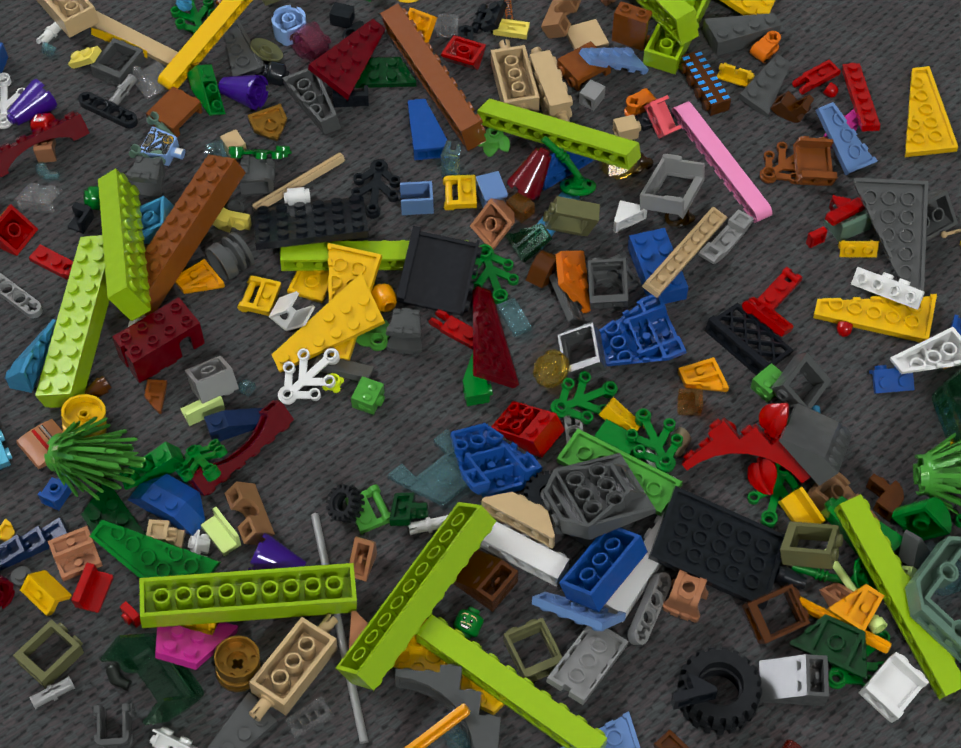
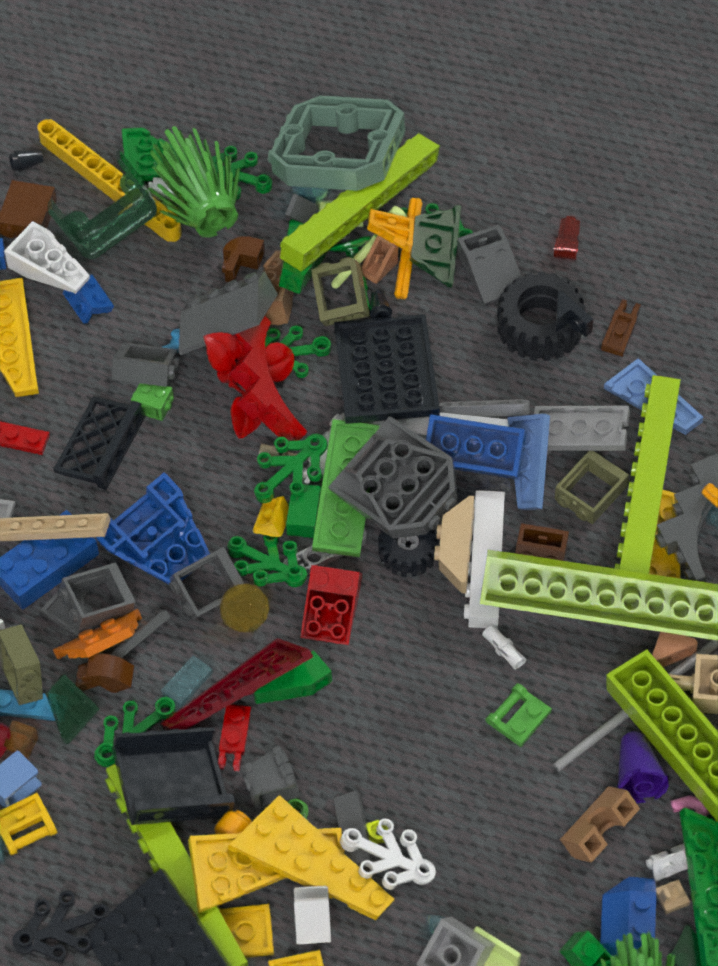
camera: 115 degrees left, 0 degrees up
(158, 529) = (676, 909): tan tile -> none
(196, 456) = (570, 903): green plant -> none
(221, 533) = (635, 848): yellowish green panel -> none
(232, 422) = (493, 908): dark blue slope -> none
(273, 419) = (476, 864): dark red arch -> none
(354, 503) = (545, 731): black tyre -> none
(363, 557) = (584, 688): nougat slope -> none
(368, 395) = (378, 781): bright green head -> none
(405, 508) = (502, 672): dark green hinge -> none
(416, 190) = (63, 844): medium blue piece -> none
(440, 480) = (438, 657): clear light blue wing -> none
(468, 622) = (597, 554): green head -> none
(490, 463) = (397, 613): blue wedge -> none
(493, 222) = (60, 757): nougat slope -> none
(686, 596) = (445, 374): nougat piece -> none
(690, 402) = (214, 462): clear orange panel -> none
(703, 376) = (174, 461): light orange wing -> none
(758, 624) = (451, 298): reddish brown window -> none
(767, 316) = (61, 431): red hinge -> none
(801, 508) = (299, 318): yellow panel -> none
(844, 328) = (42, 357): red hinge -> none
(893, 686) = (447, 191): white panel -> none
(924, 518) = (257, 211): green brick -> none

